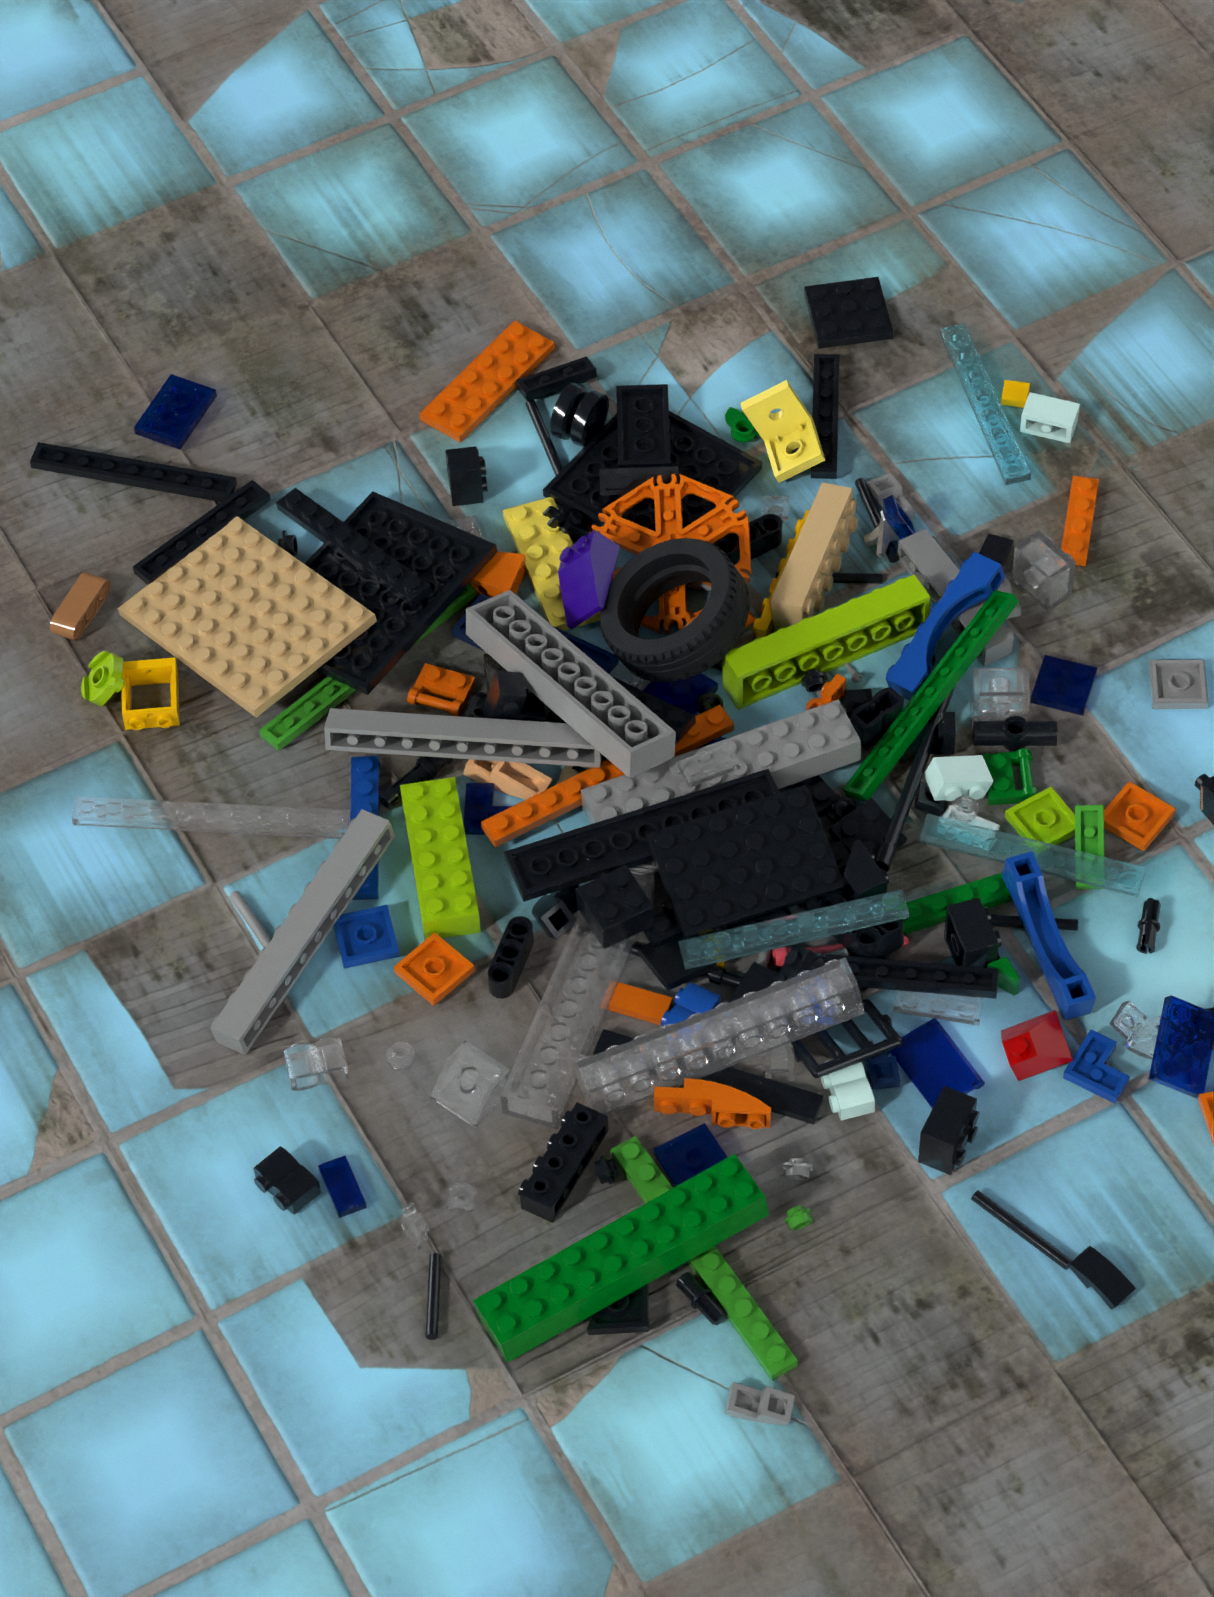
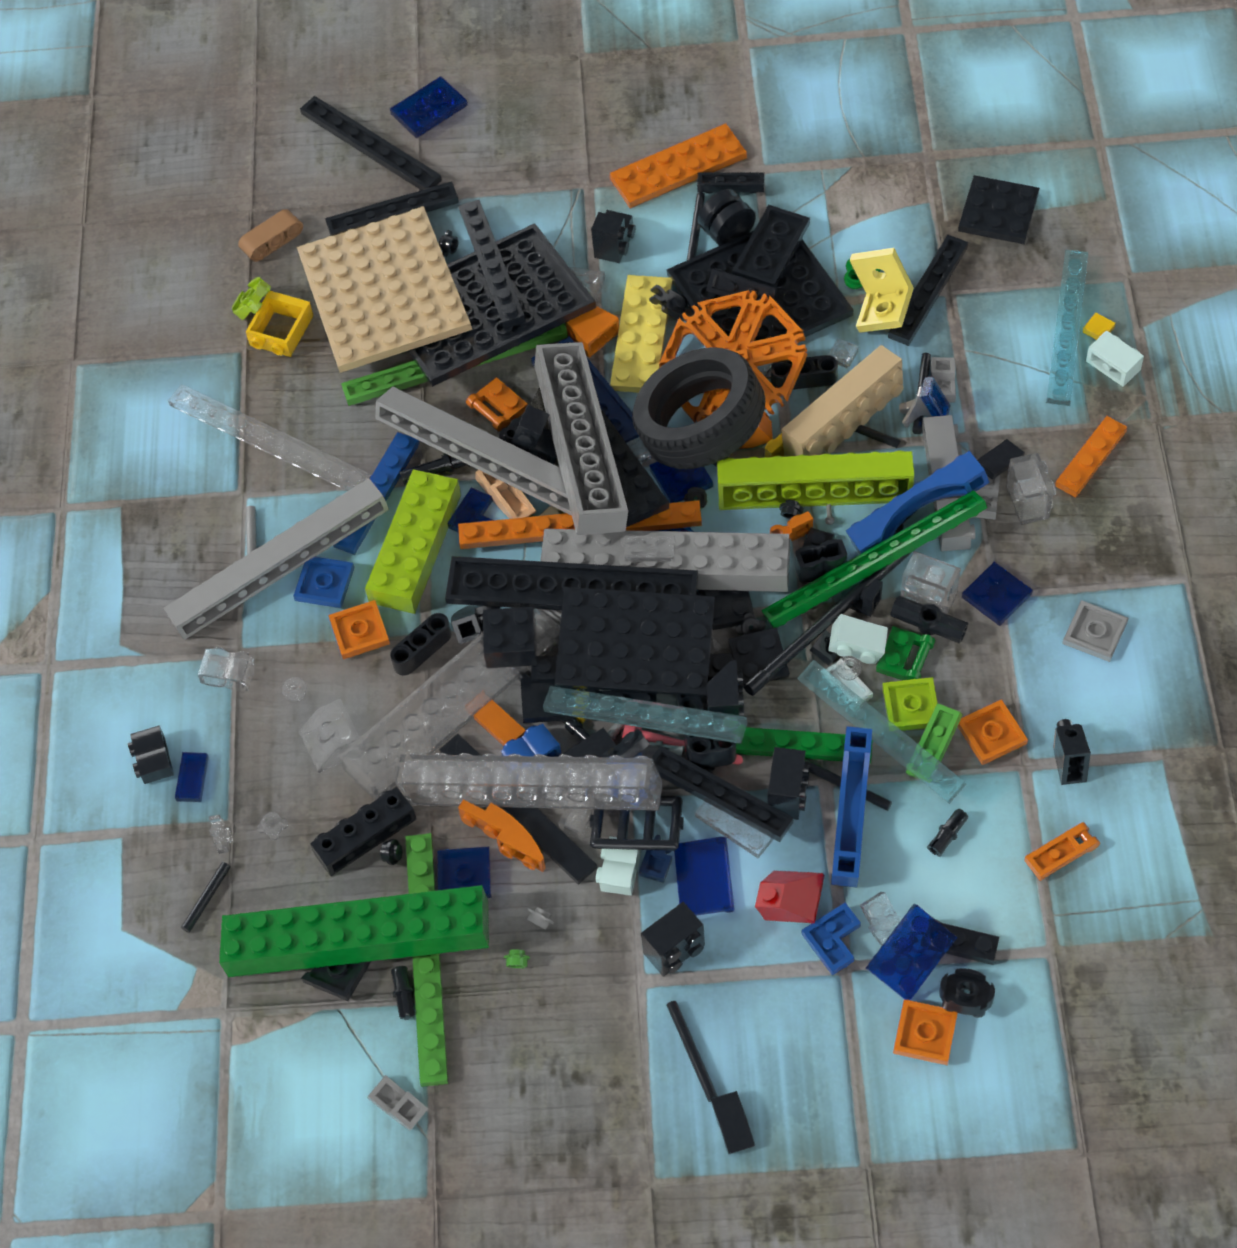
camera: 30 degrees right, 5 degrees up
(586, 576) = (649, 352): dark purple slope -> none
(1007, 975) = (800, 824): green slope -> none

